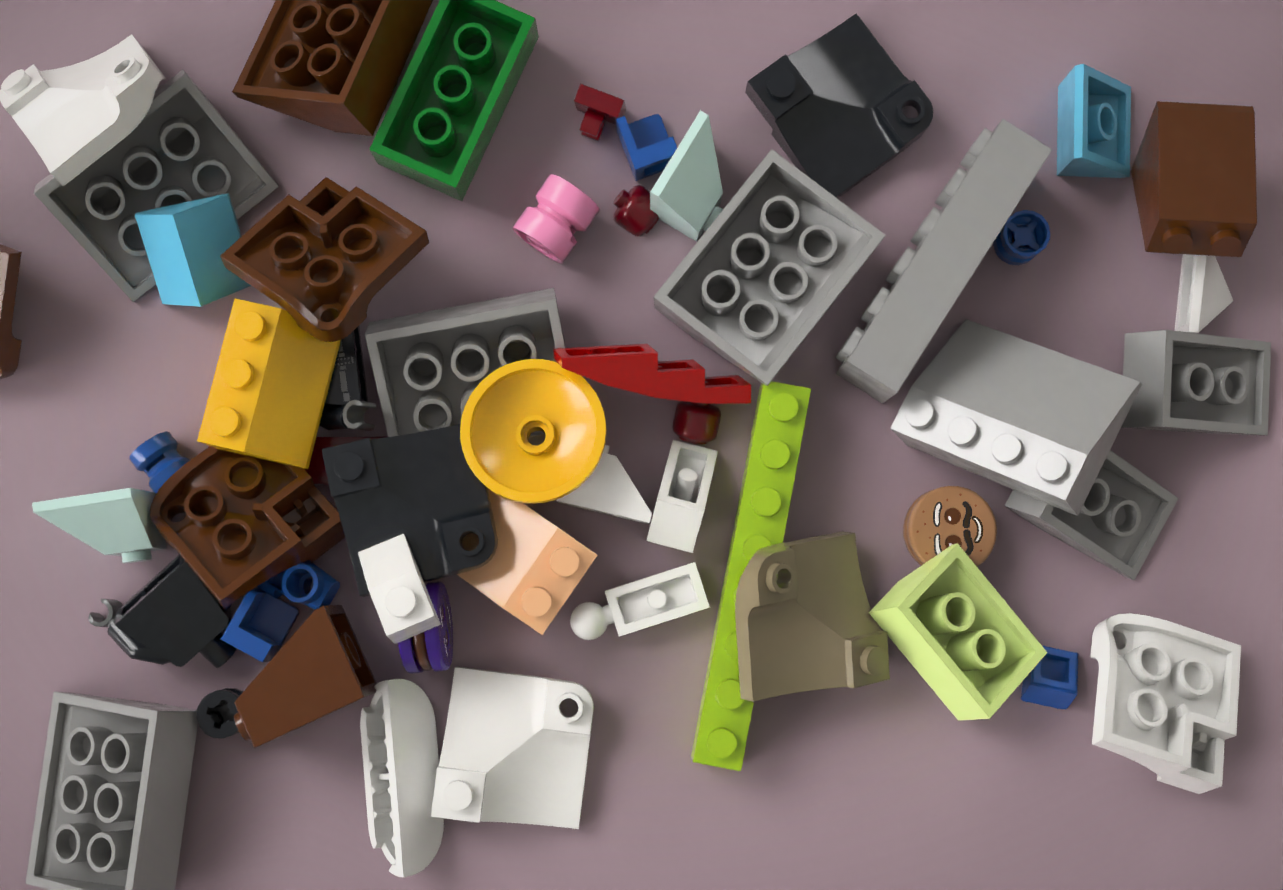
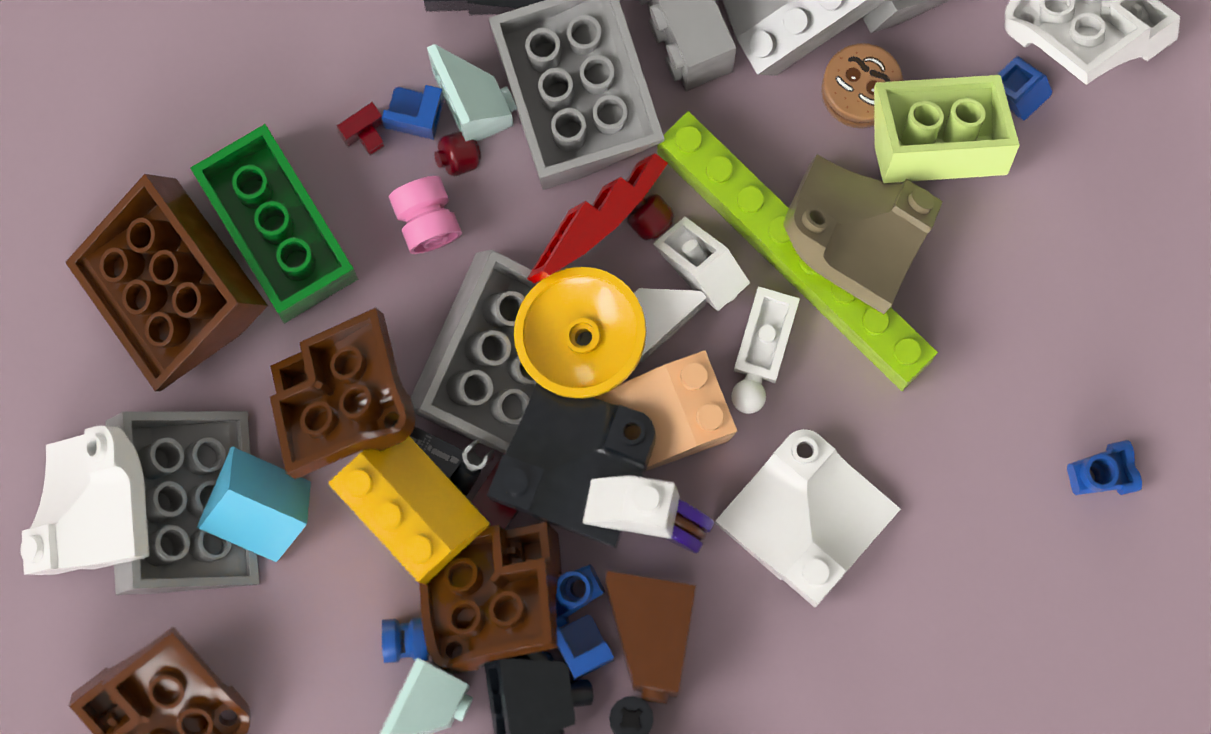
camera: 55 degrees left, 5 degrees down
(401, 775) = (770, 614): white brick -> none

